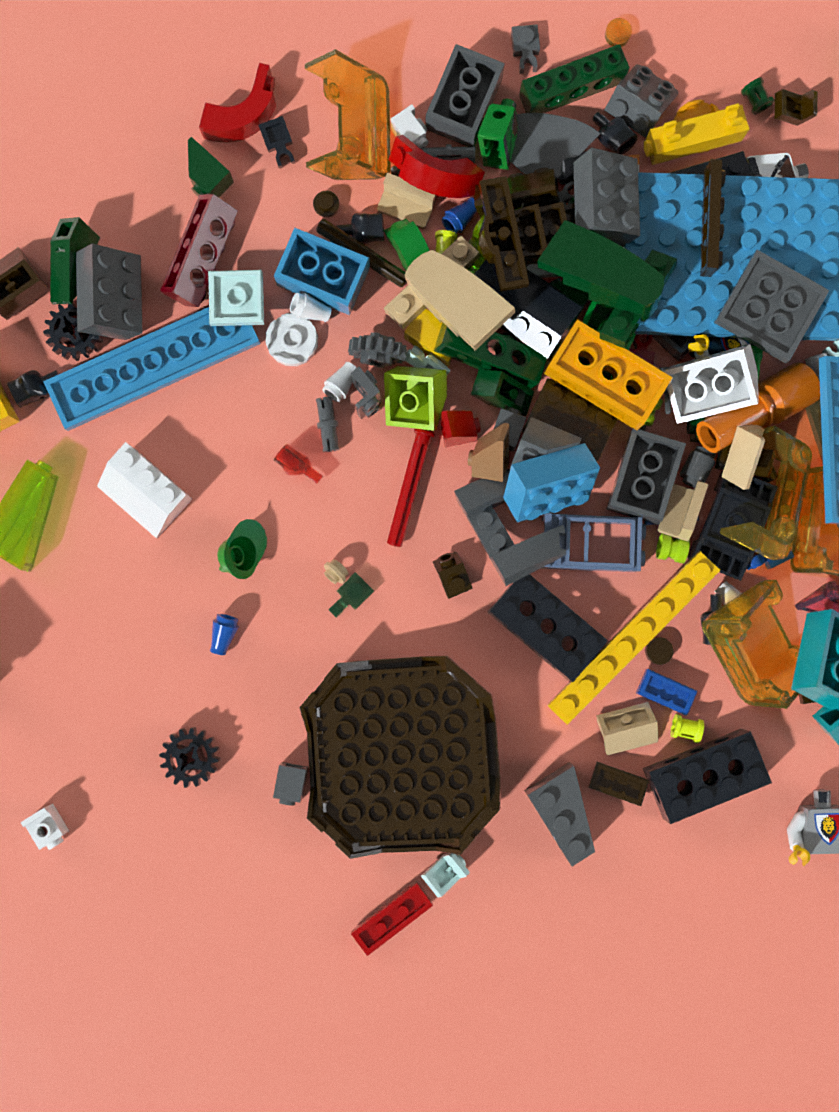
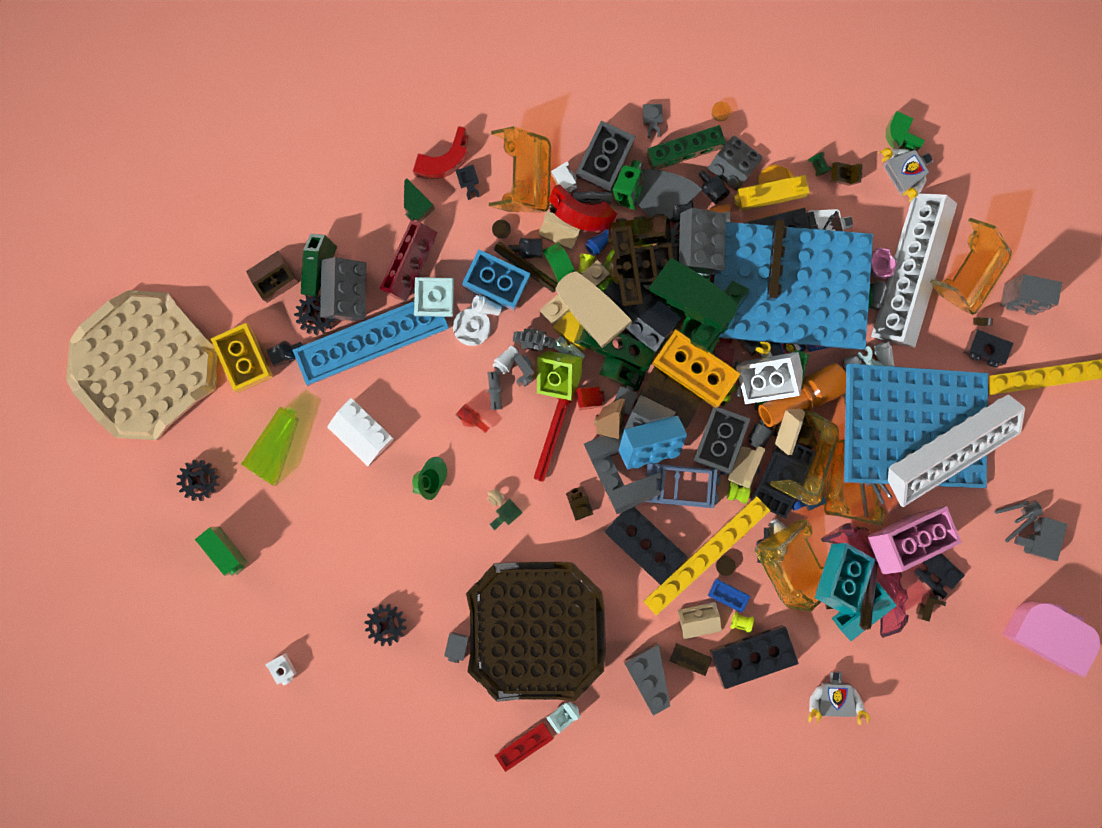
camera: 10 degrees right, 0 degrees up
(223, 632) = (413, 536): blue cone -> none
(771, 306) = (815, 325): dark grey plate -> none

